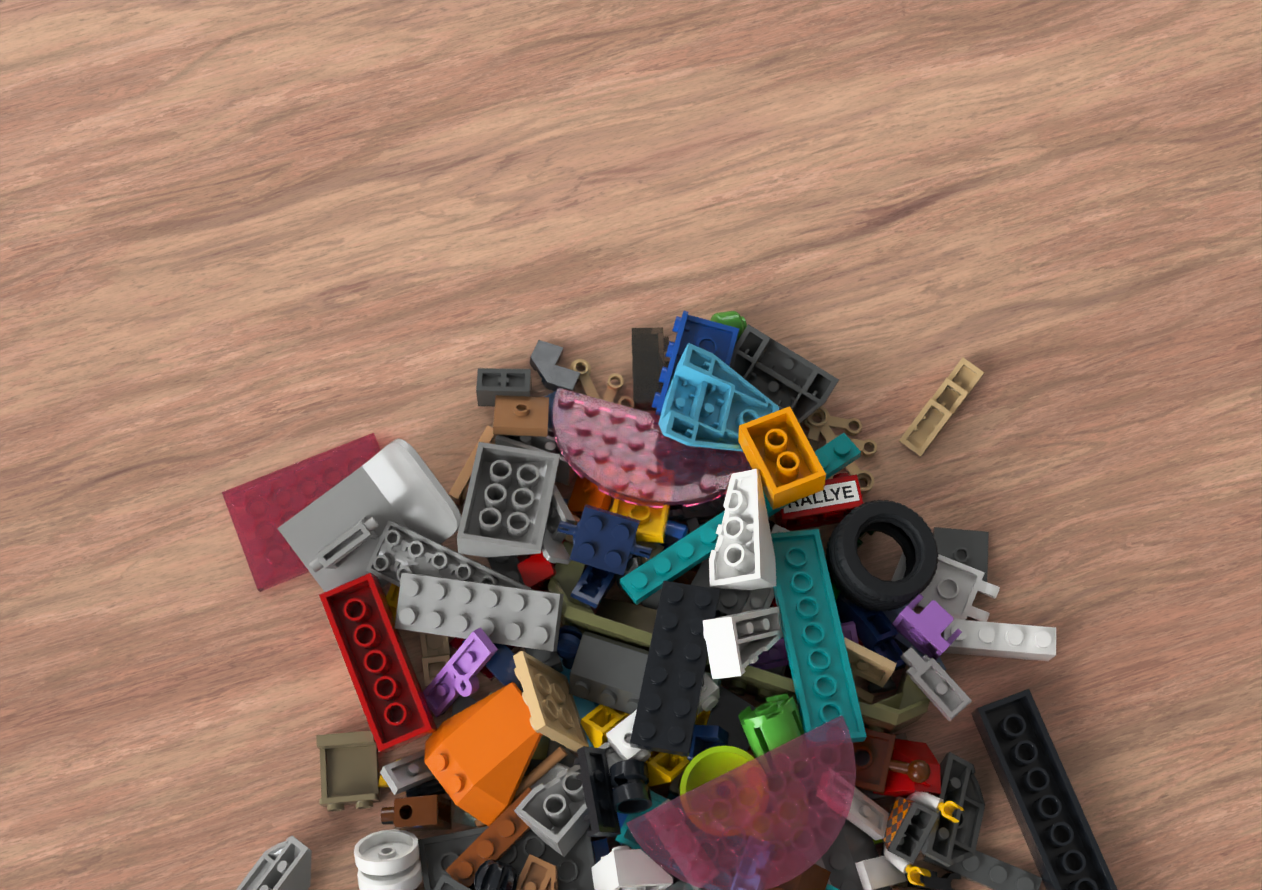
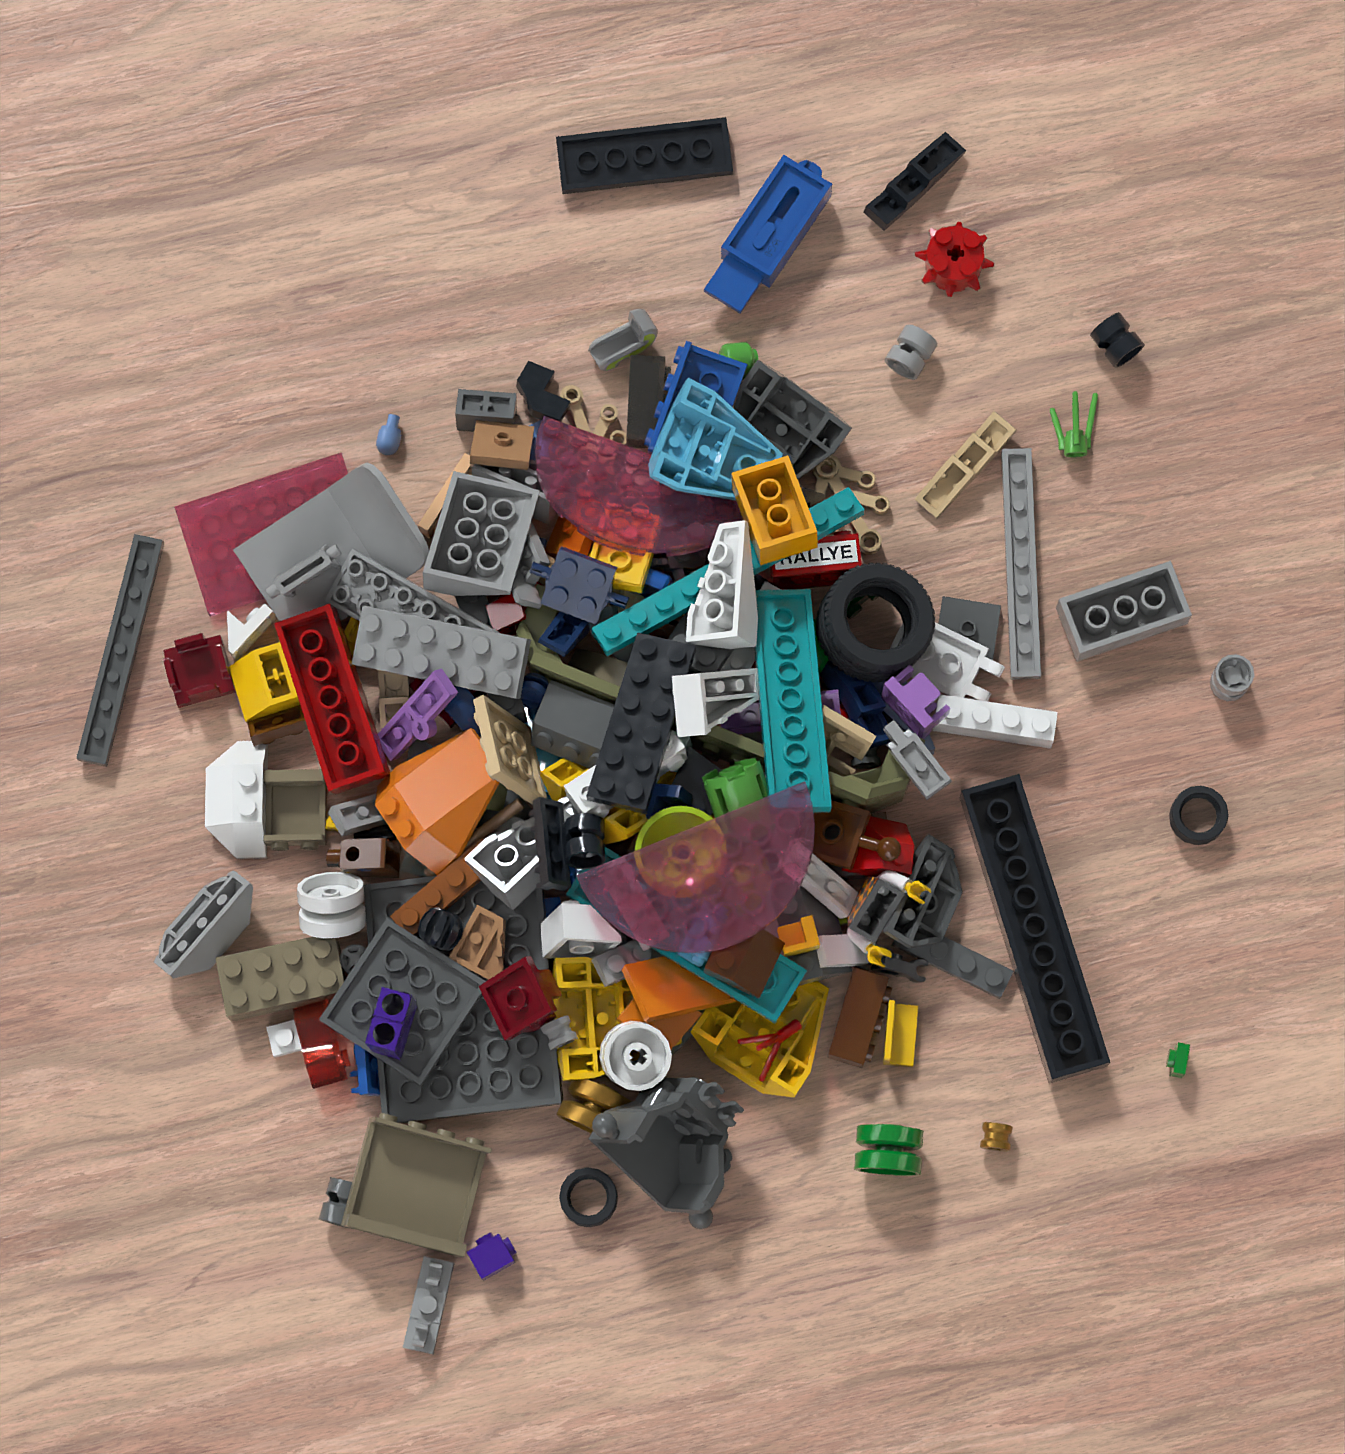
camera: 10 degrees right, 5 degrees up
(176, 631) = (120, 650): none -> dark grey plate
(250, 642) = (198, 669): none -> dark red panel
(290, 608) = (243, 636): none -> white slope
(293, 764) = (238, 799): none -> white wedge
(312, 651) = (263, 682): none -> yellow slope
(327, 691) = (277, 725): none -> reddish brown plate
(417, 415) = (389, 436): none -> medium blue cylinder
(625, 316) = (624, 341): none -> light grey animal
(628, 155) = (644, 155): none -> black plate
(745, 213) = (769, 231): none -> blue piece
(843, 863) = (799, 937): none -> yellow panel
(868, 163) = (914, 181): none -> black slope
(882, 310) = (913, 348): none -> light grey wheel
(911, 226) = (958, 243): none -> red brick
(1002, 494) = (1020, 564): none -> light grey plate
(1038, 379) = (1075, 442): none -> bright green plant
(1064, 288) = (1117, 340): none -> black wheel
(1102, 529) = (1123, 611): none -> light grey brick
(1208, 584) = (1231, 677): none -> light grey wheel
(1212, 703) = (1204, 793): none -> black tyre

